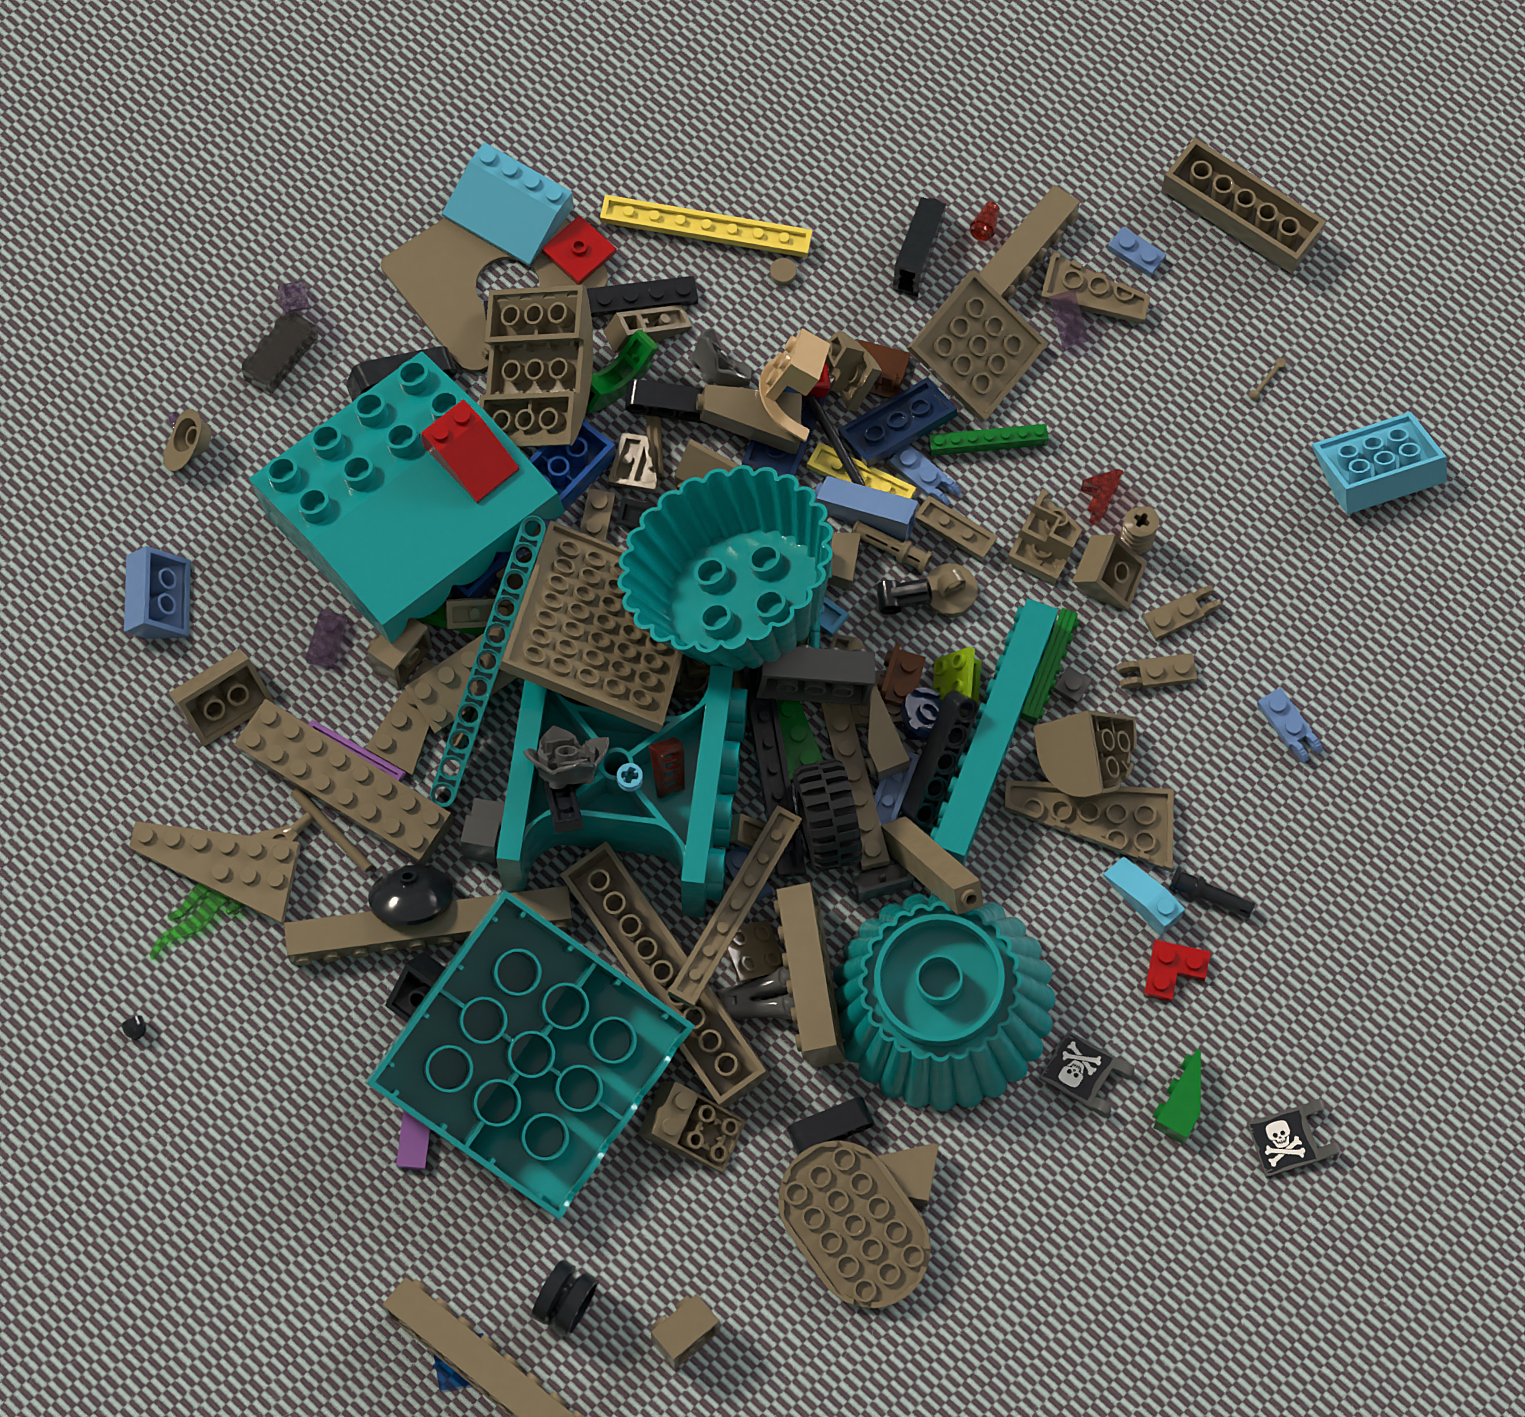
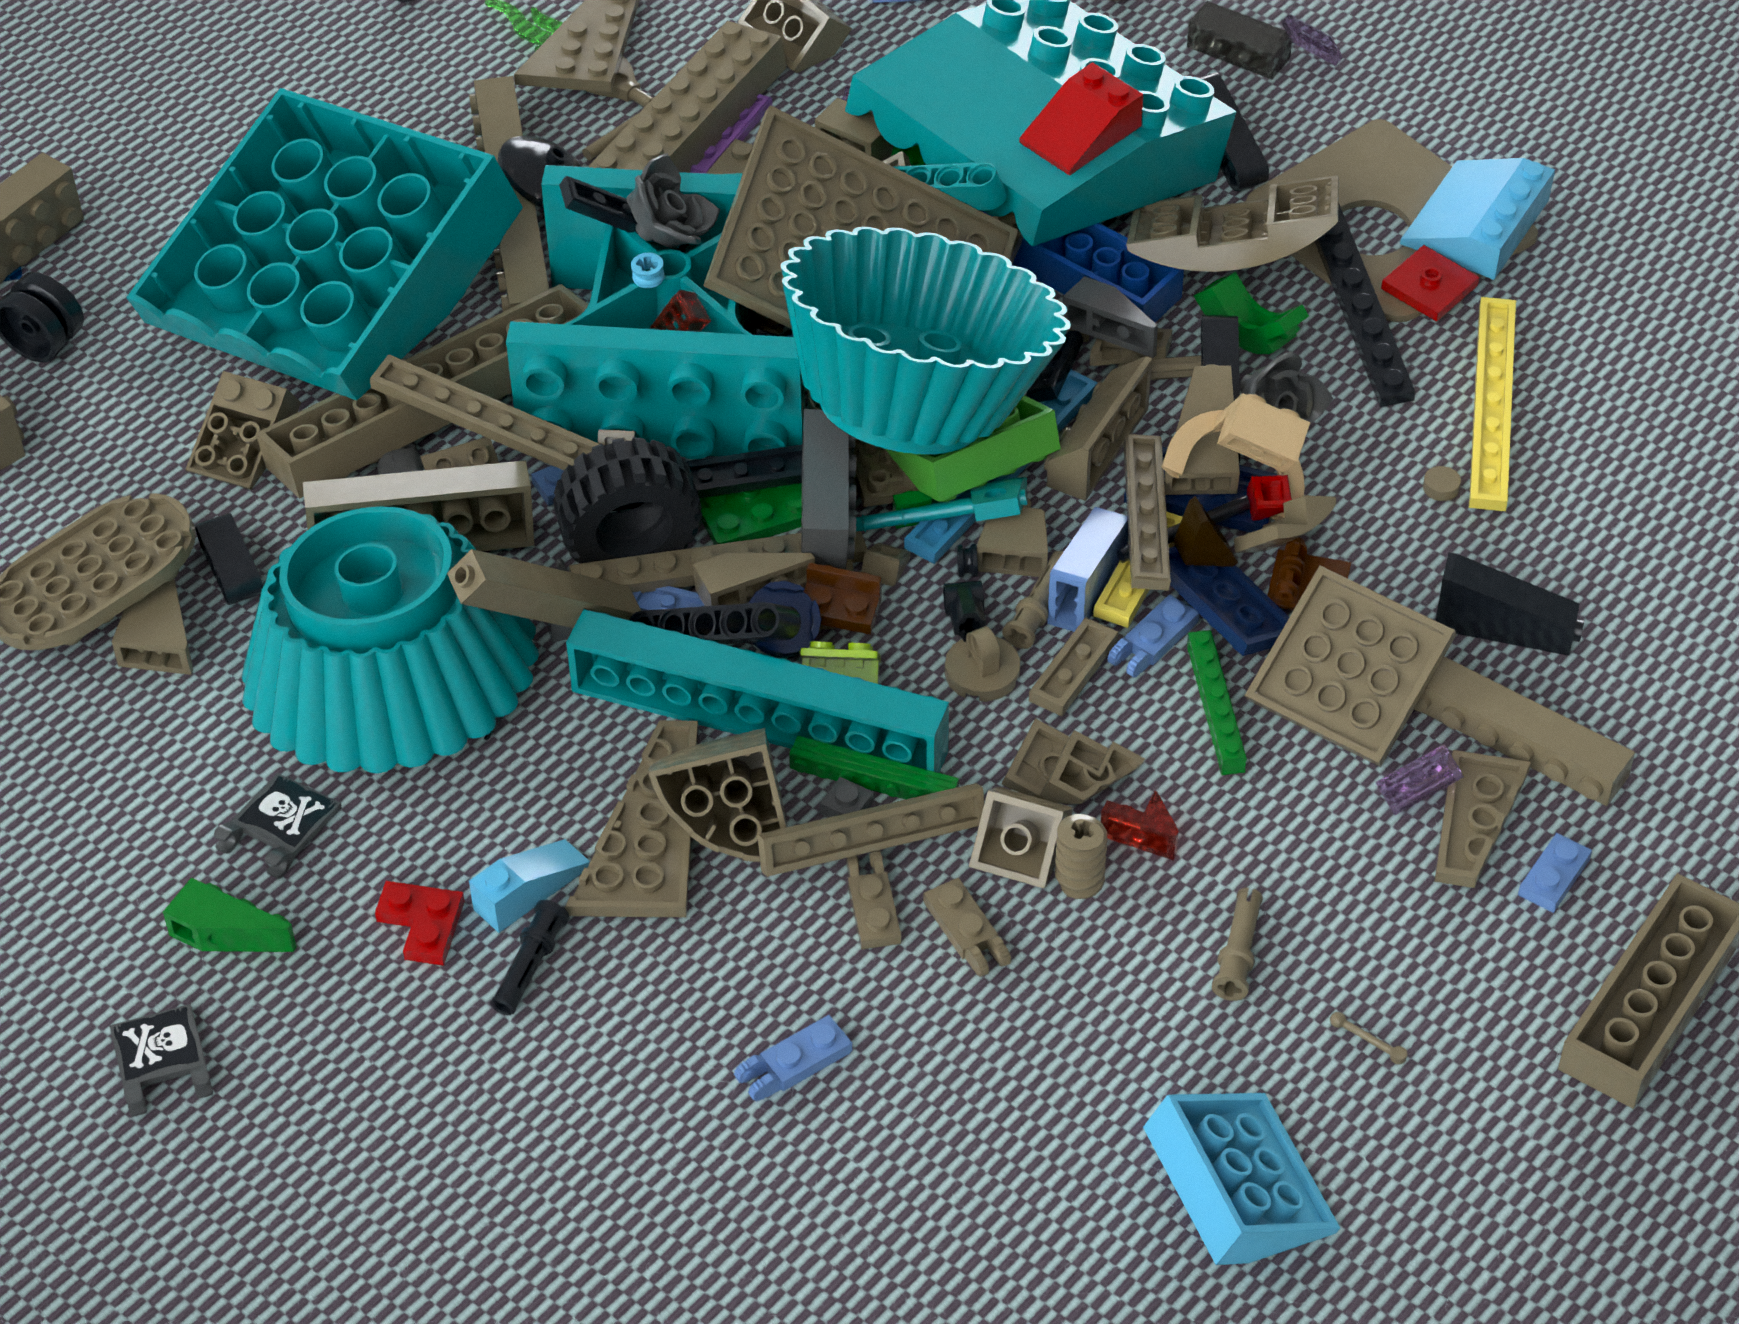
camera: 90 degrees right, 20 degrees down
(620, 471) = (1110, 316): none -> dark grey slope
(655, 322) = (1331, 350): dark tan slope -> none
(830, 461) = (1146, 512): none -> dark tan tile
(852, 592) = (967, 560): none -> black bush
(858, 429) = (1201, 540): none -> dark brown slope
(985, 222) = (1564, 690): clear red cone -> none
(1118, 669) = (870, 829): none -> dark tan plate
(1210, 447) = (1236, 956): none -> dark tan pin

